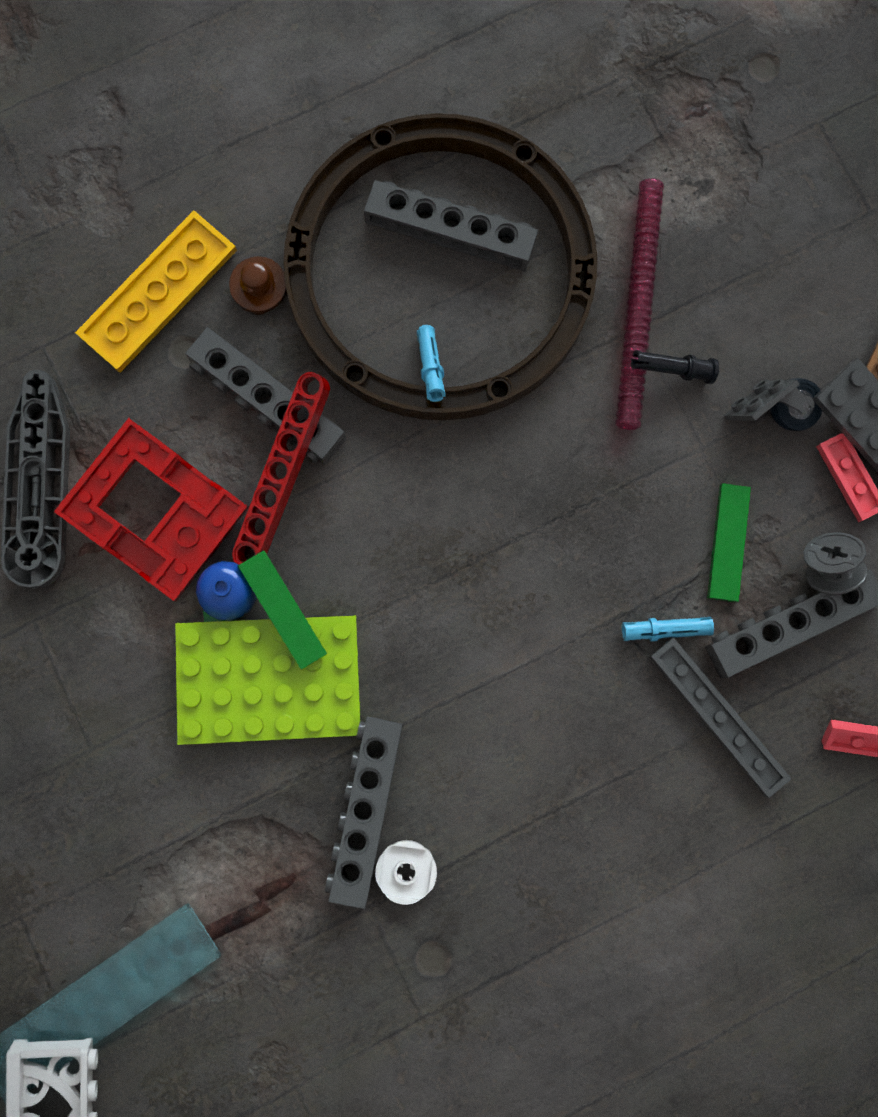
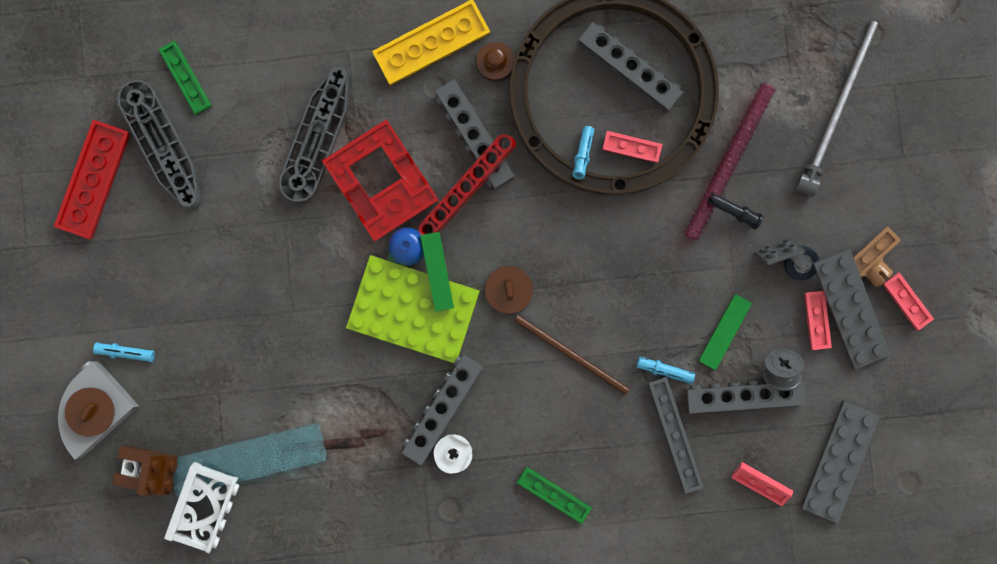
camera: 30 degrees right, 5 degrees up
(398, 598) = (508, 289): none -> reddish brown shield
(496, 333) = (632, 147): none -> coral plate
(524, 657) = (571, 354): none -> reddish brown piece
(578, 875) = (554, 495): none -> green tile
(758, 291) = (807, 183): none -> flat silver piece

